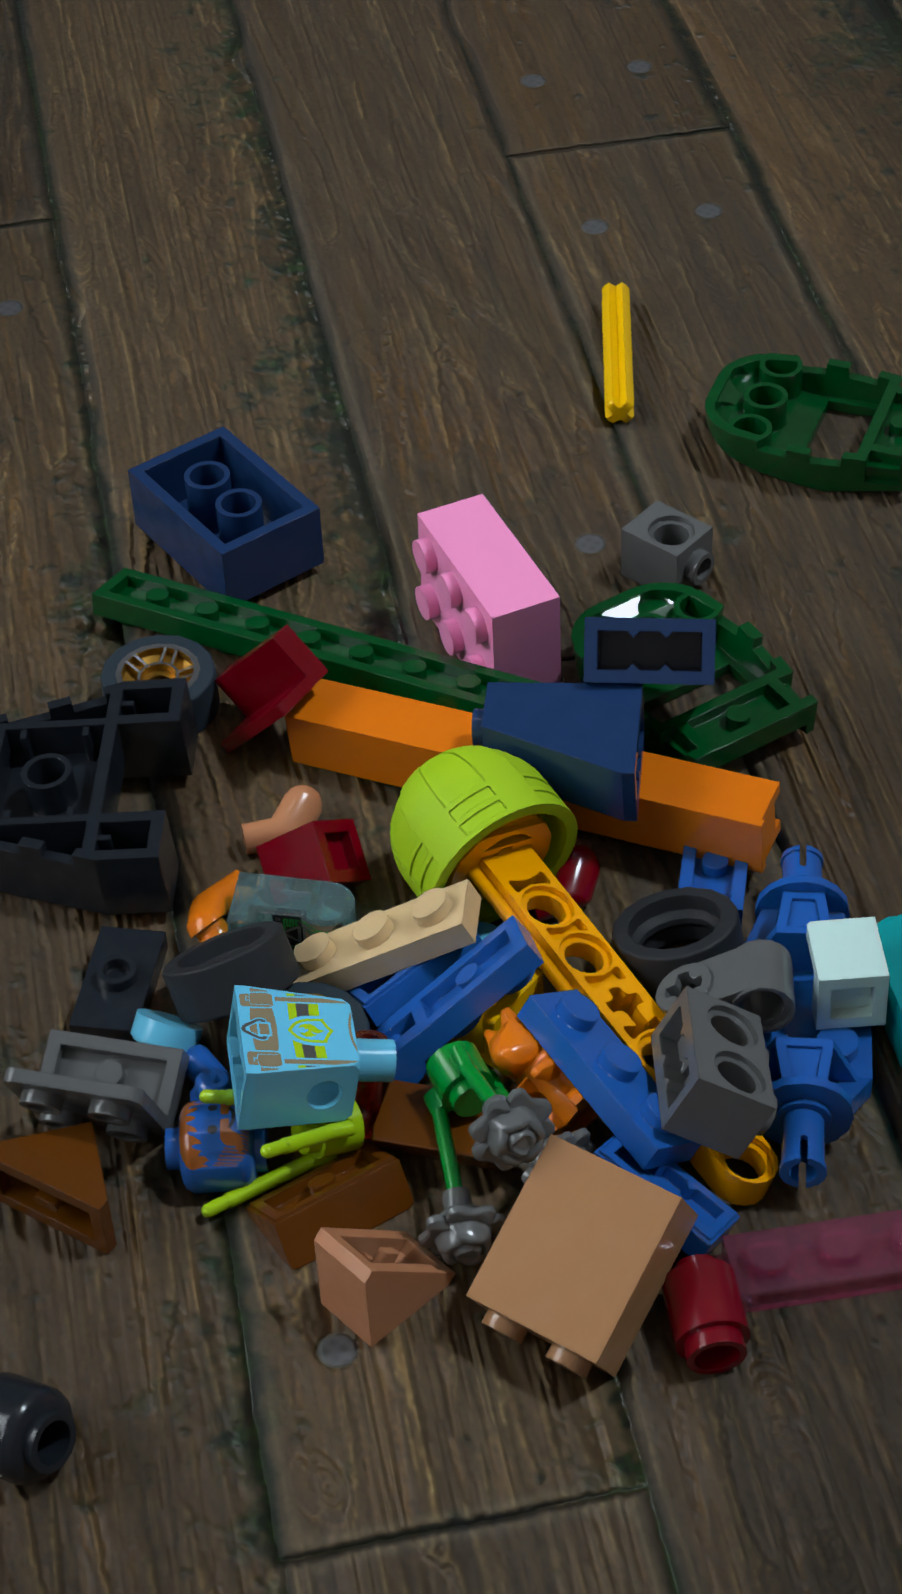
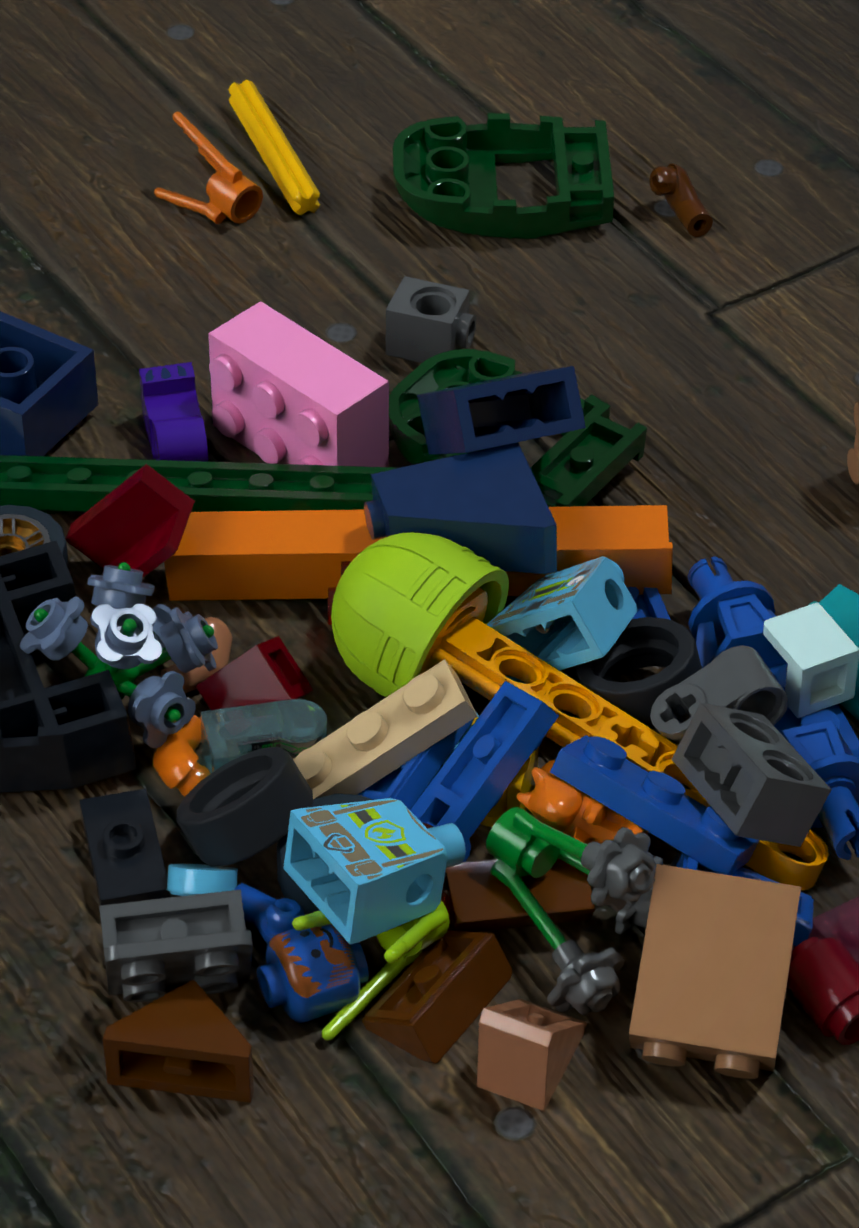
camera: 25 degrees left, 0 degrees up
(182, 790) = (129, 644): none -> sand blue plant
(380, 586) = (173, 413): none -> dark purple leg
(549, 384) = (228, 189): none -> orange plant
(644, 865) = (582, 605): none -> medium azure torso

